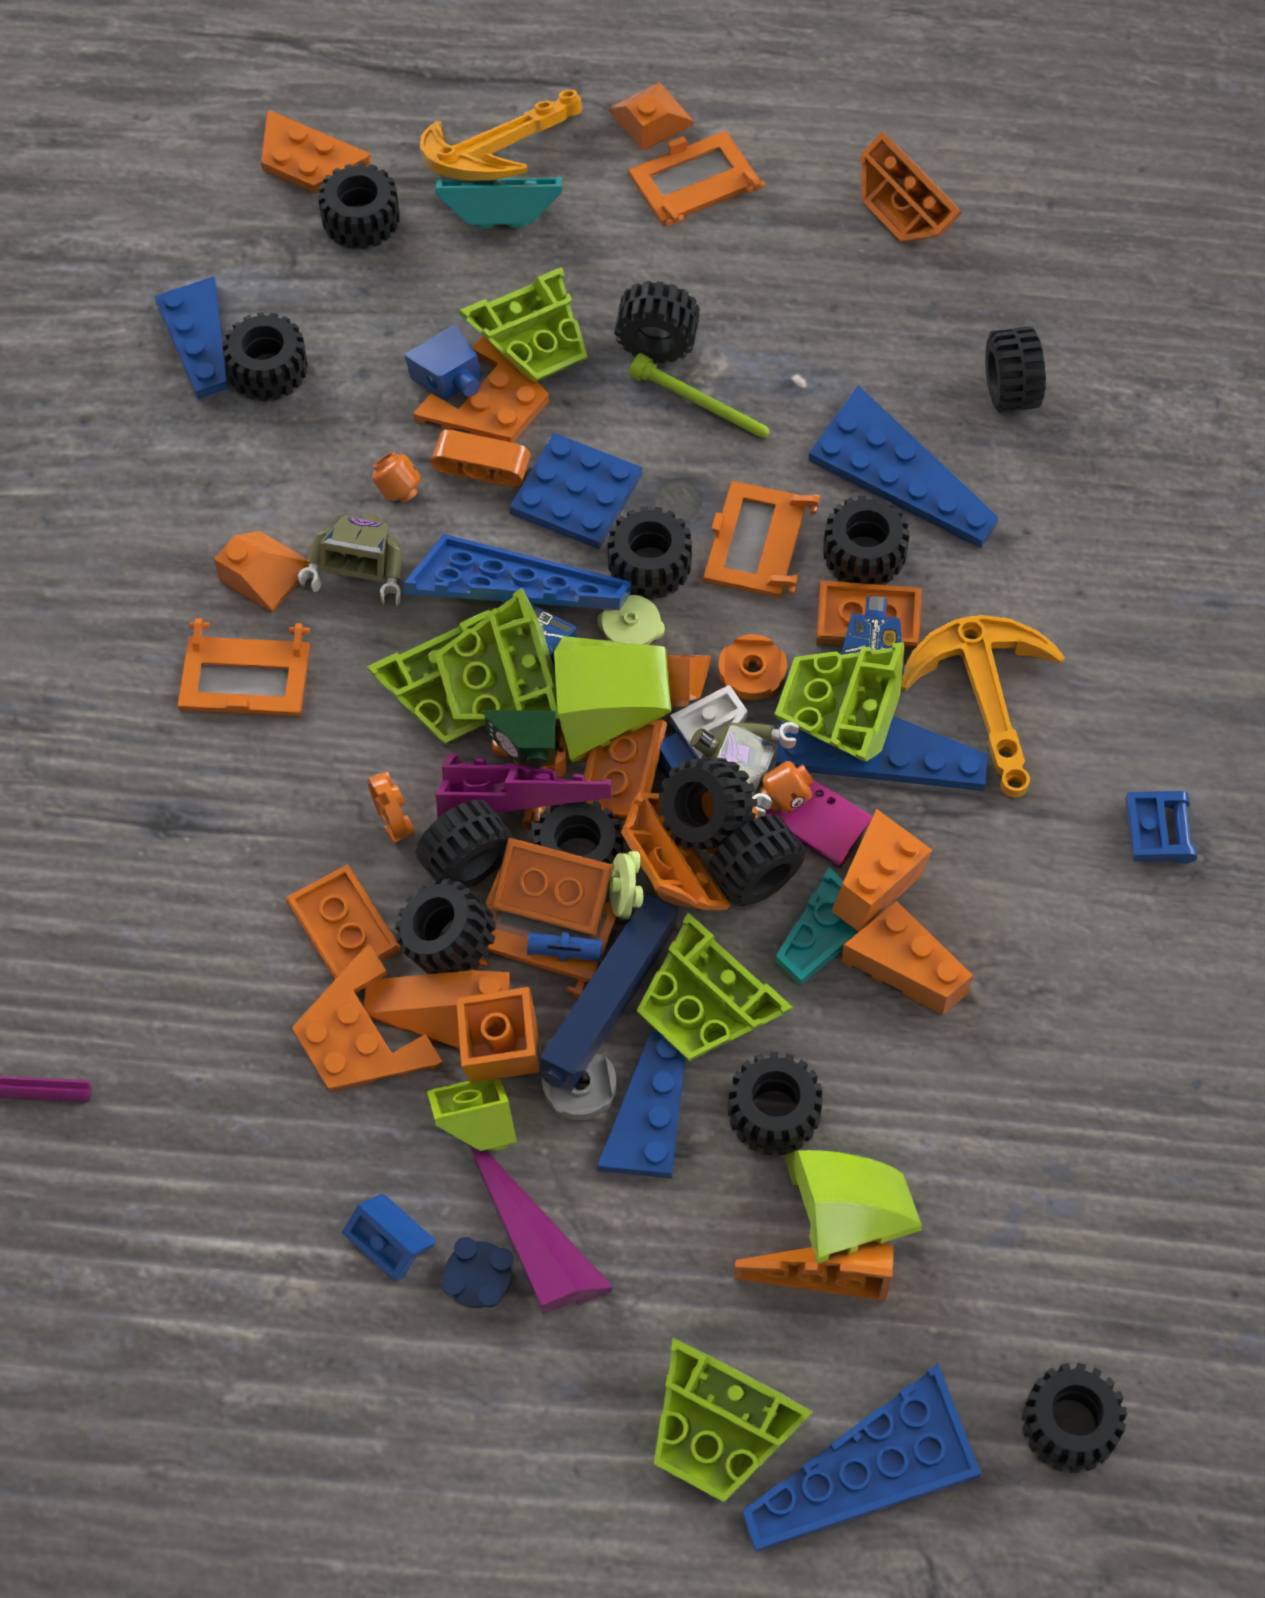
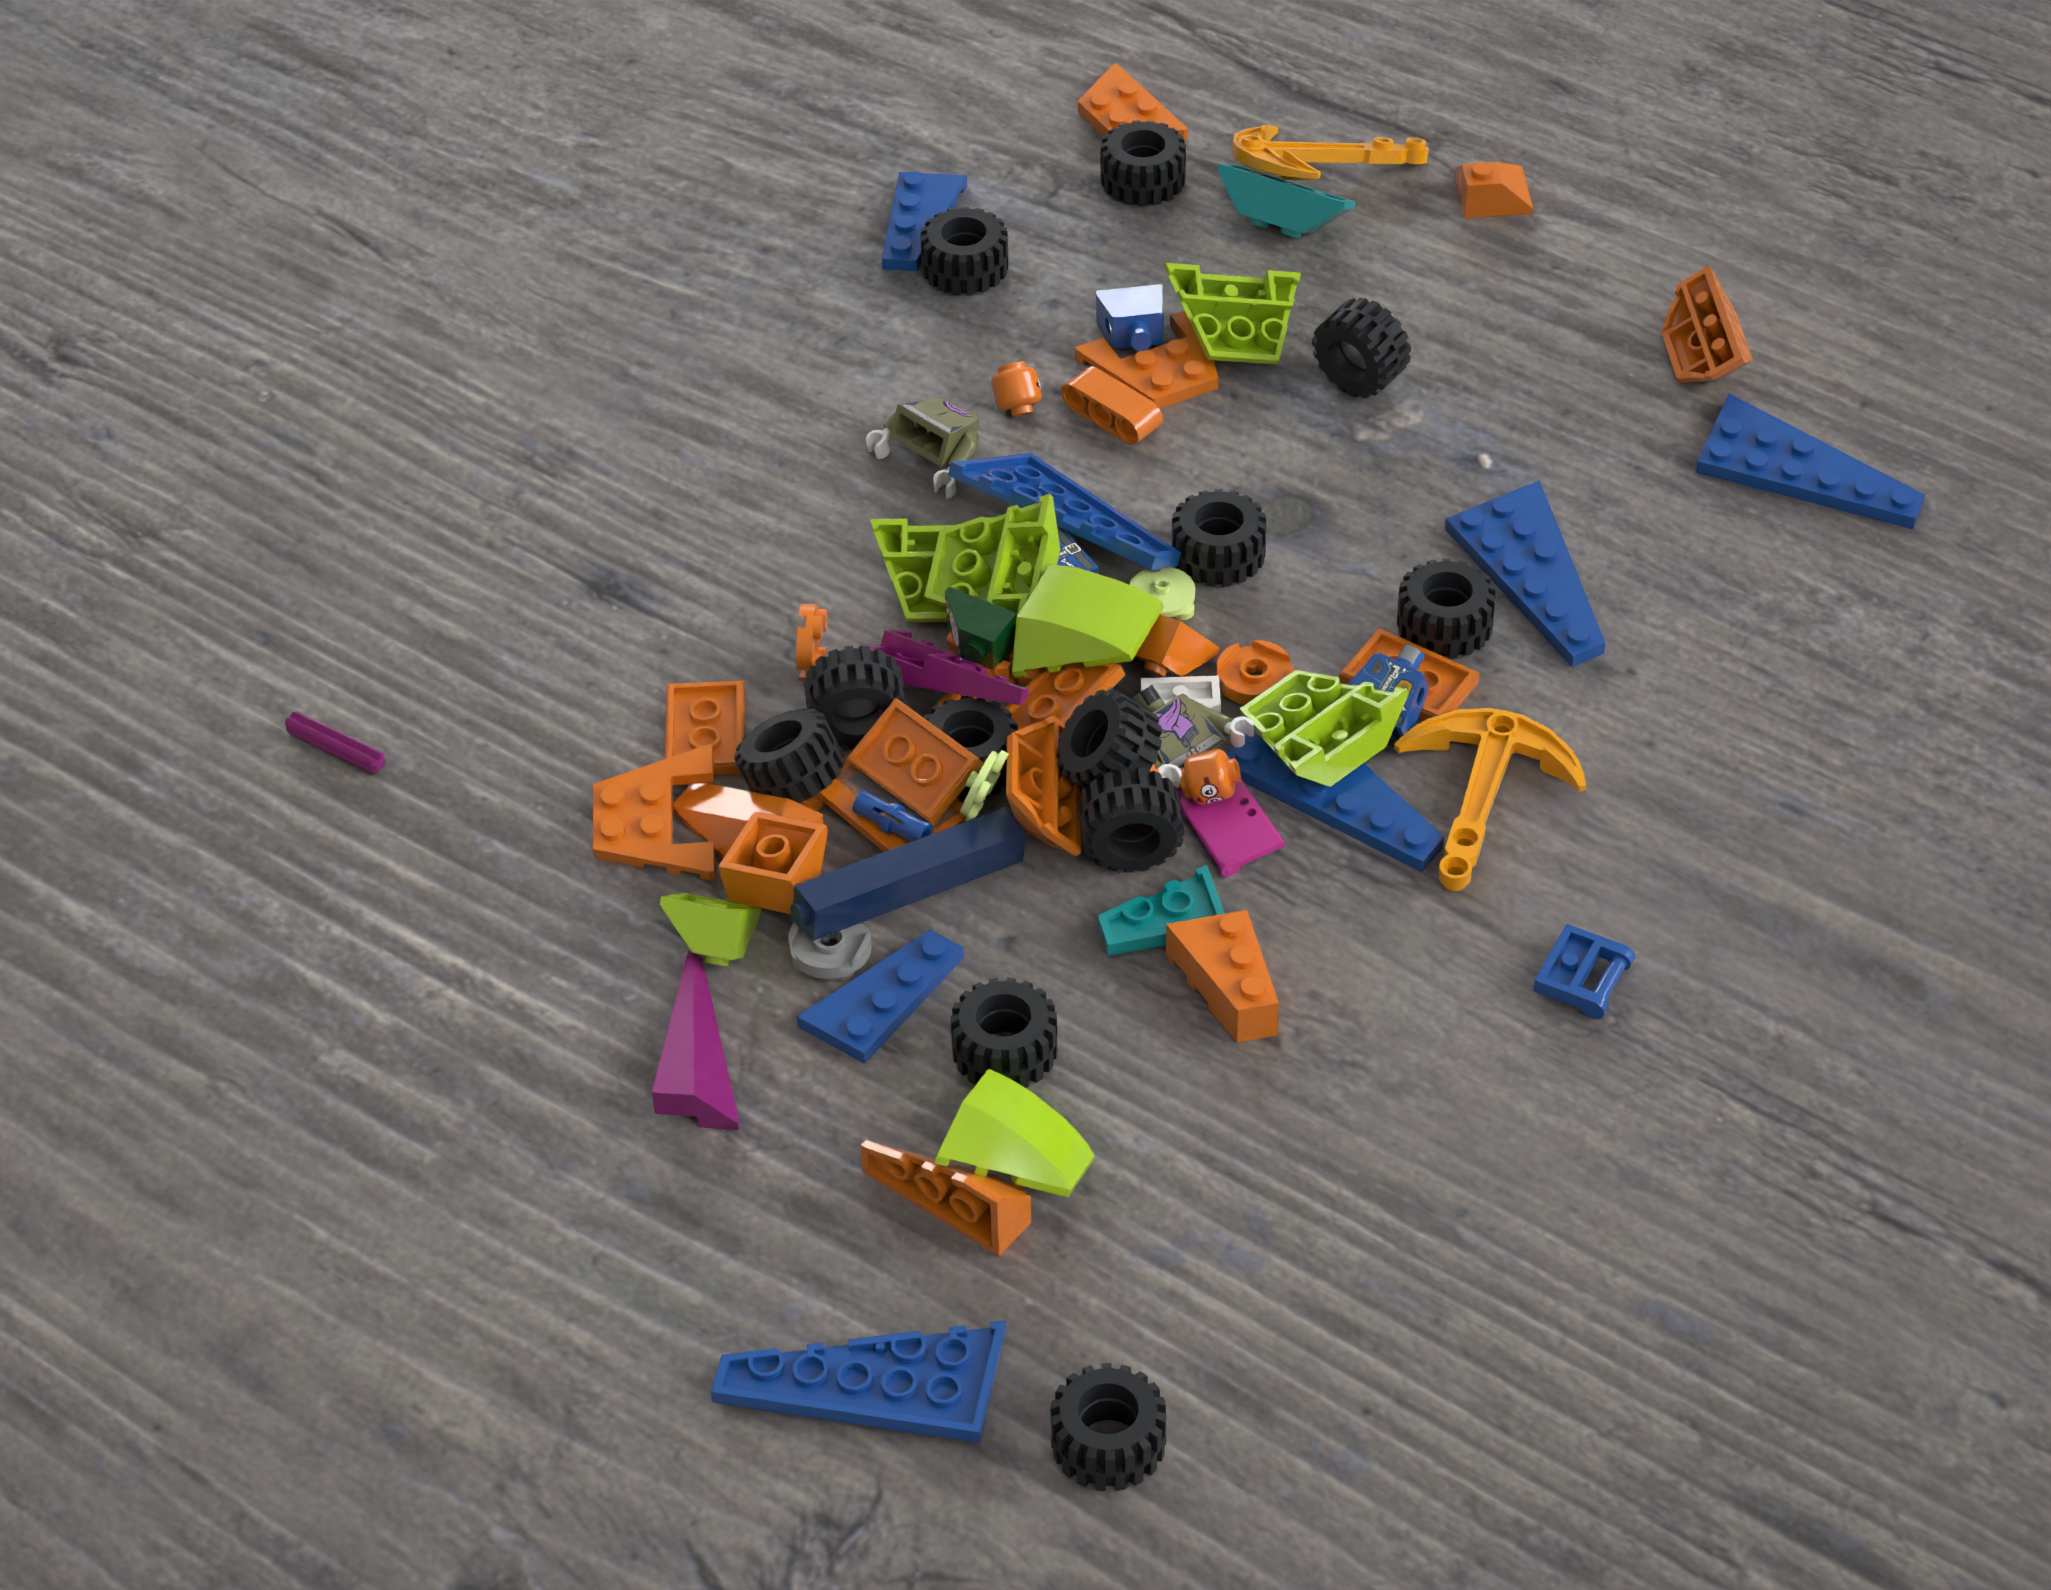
camera: 30 degrees right, 15 degrees down
(244, 674) = (764, 497): orange piece -> none
(259, 568) = (835, 415): orange slope -> none
(387, 1235) = (559, 986): blue panel -> none
(477, 1273) = (619, 1054): dark blue piece -> none
(576, 490) = (1187, 460): blue plate -> none
(644, 369) = (1329, 392): lime piece -> none
(694, 177) = (1500, 254): orange piece -> none
(705, 995) = (1000, 915): lime wedge -> none
(719, 1422) = (751, 1269): lime wedge -> none
(757, 539) = (1340, 572): orange piece -> none
(880, 872) = (1254, 875): orange wedge -> none
(1015, 369) = (1706, 514): black tyre -> none
(1024, 285) = (1779, 458): none -> blue wing

